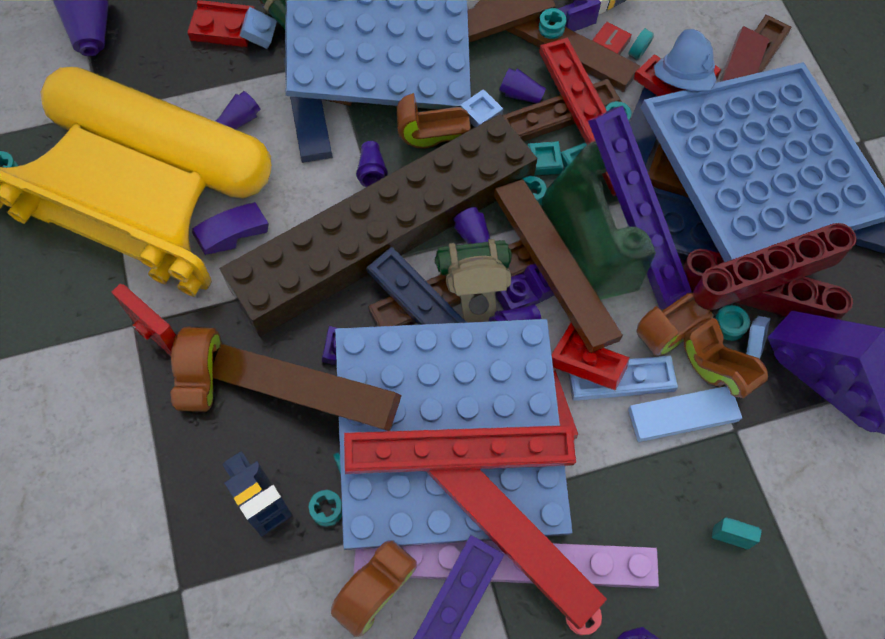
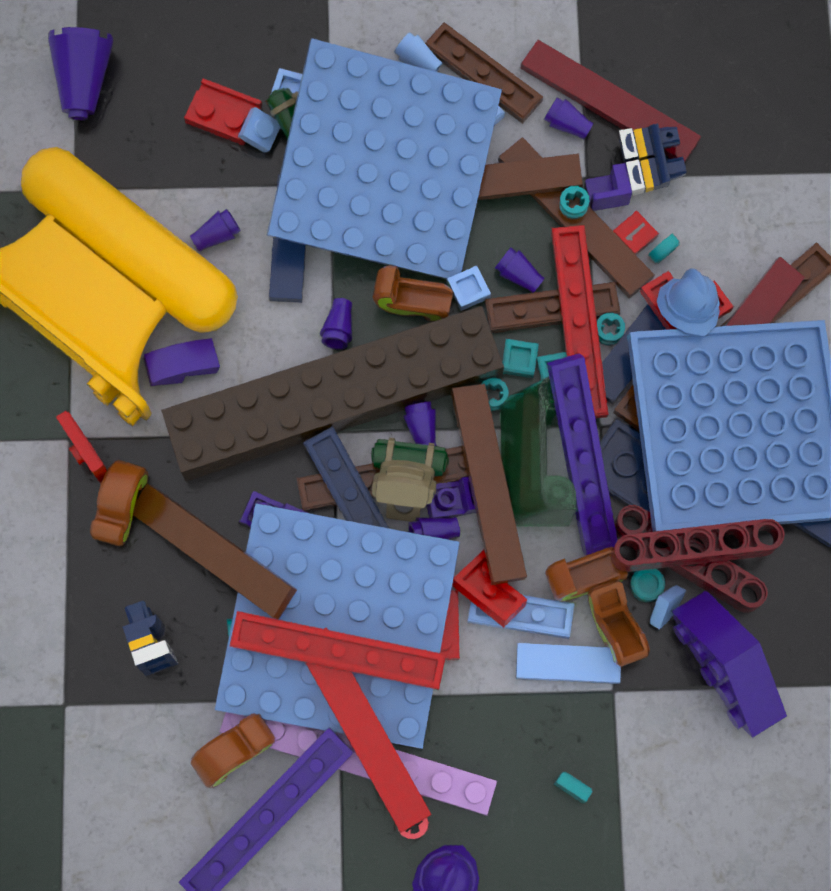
camera: 15 degrees right, 10 degrees up
(331, 498) = (202, 674): teal bush -> none

